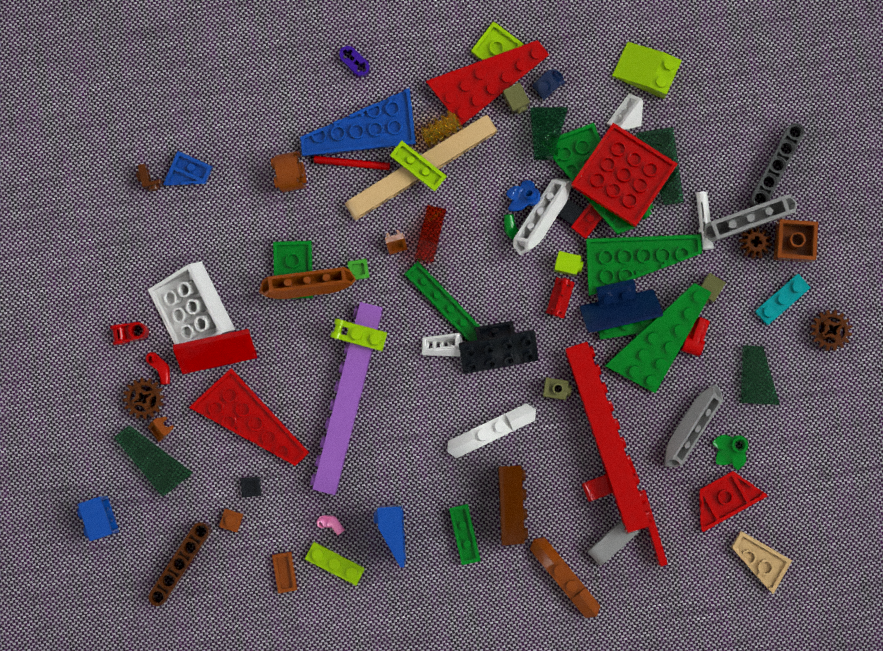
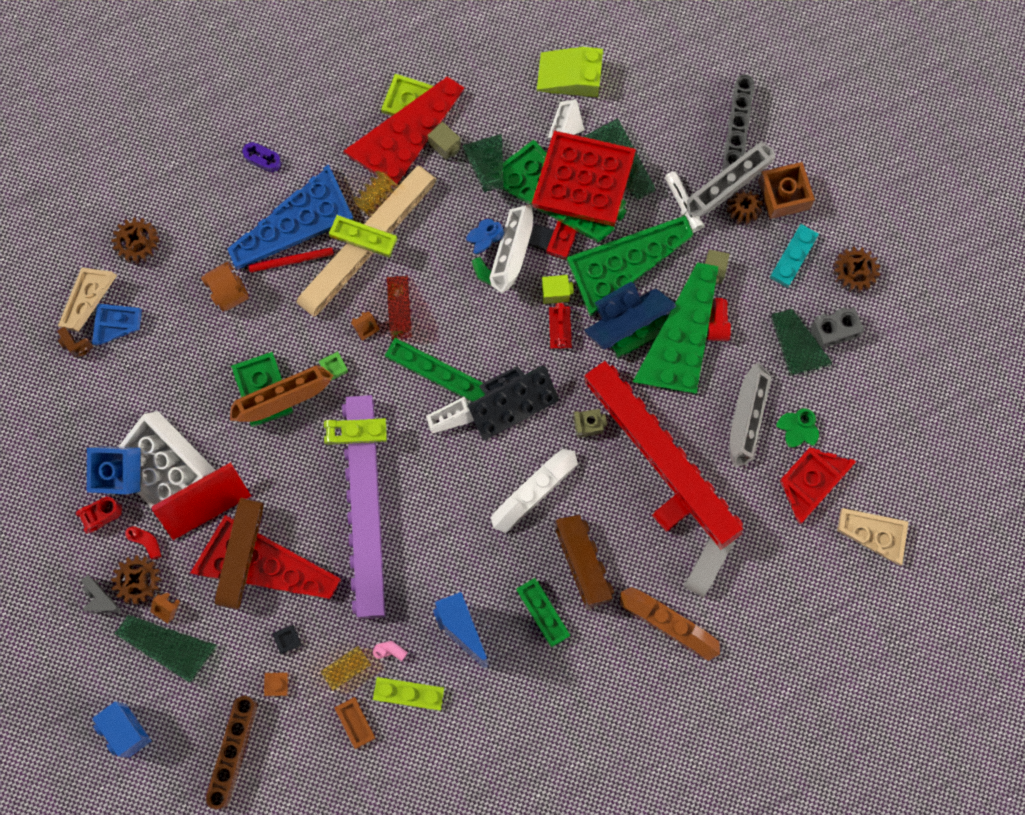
camera: 20 degrees left, 10 degrees down
(112, 406) = (102, 602): none -> dark grey slope
(151, 301) = (113, 469): none -> blue brick
(169, 141) = (85, 296): none -> tan wing
(220, 109) = (139, 248): none -> reddish brown gear
(233, 405) = (239, 553): none -> reddish brown beam
(290, 526) = (345, 668): none -> clear yellow plate
(548, 83) = (473, 116): dark blue bracket -> none
(654, 535) = (754, 549): red tile -> none
(794, 380) = (839, 332): none -> dark grey brick

